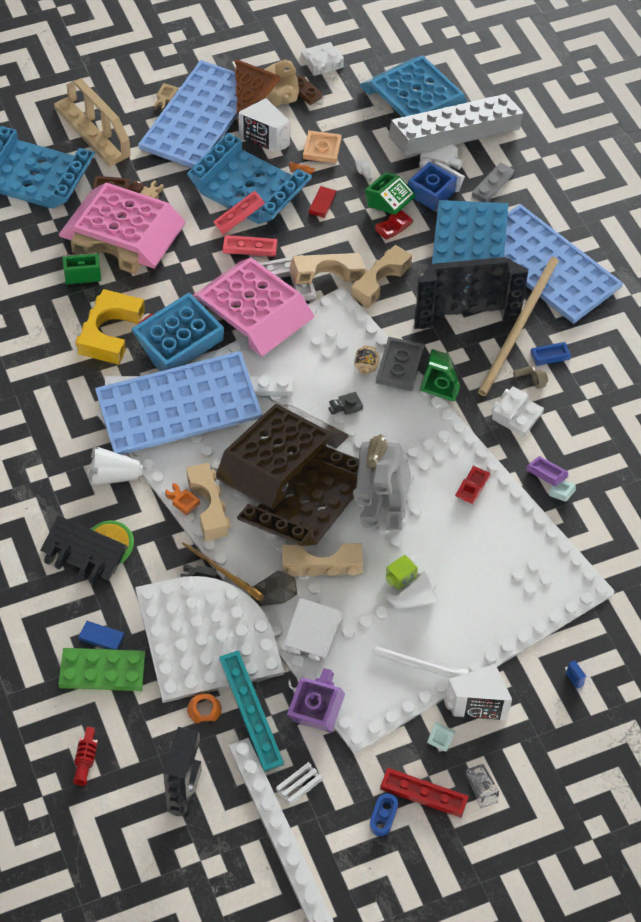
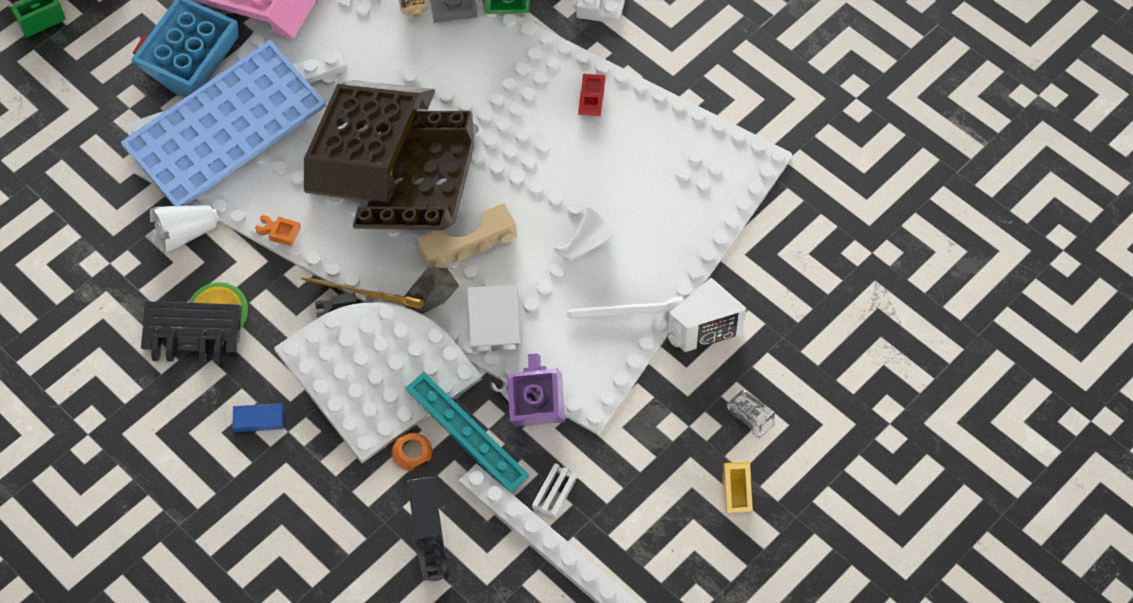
camera: 20 degrees left, 5 degrees up
(85, 756) = (303, 557): red hinge -> none
(102, 669) = (276, 453): bright green plate -> none
(107, 307) = (89, 45): yellow arch -> none
(202, 482) = (293, 203): tan arch -> none
(348, 403) = (412, 56): pearl dark grey plate -> none
(380, 475) = (496, 121): light grey piece -> none
(383, 816) = (662, 488): blue plate -> none
(401, 572) = (560, 218): lime brick -> none
(424, 792) = (694, 445): red plate -> none
(441, 736) = (684, 379): light aqua plate -> none
(442, 839) = (737, 487): none -> yellow slope
(547, 471) = (663, 51): medium lavender tile -> none
(562, 491) = (688, 66): light aqua plate -> none
(575, 674) = (794, 256): blue tile -> none

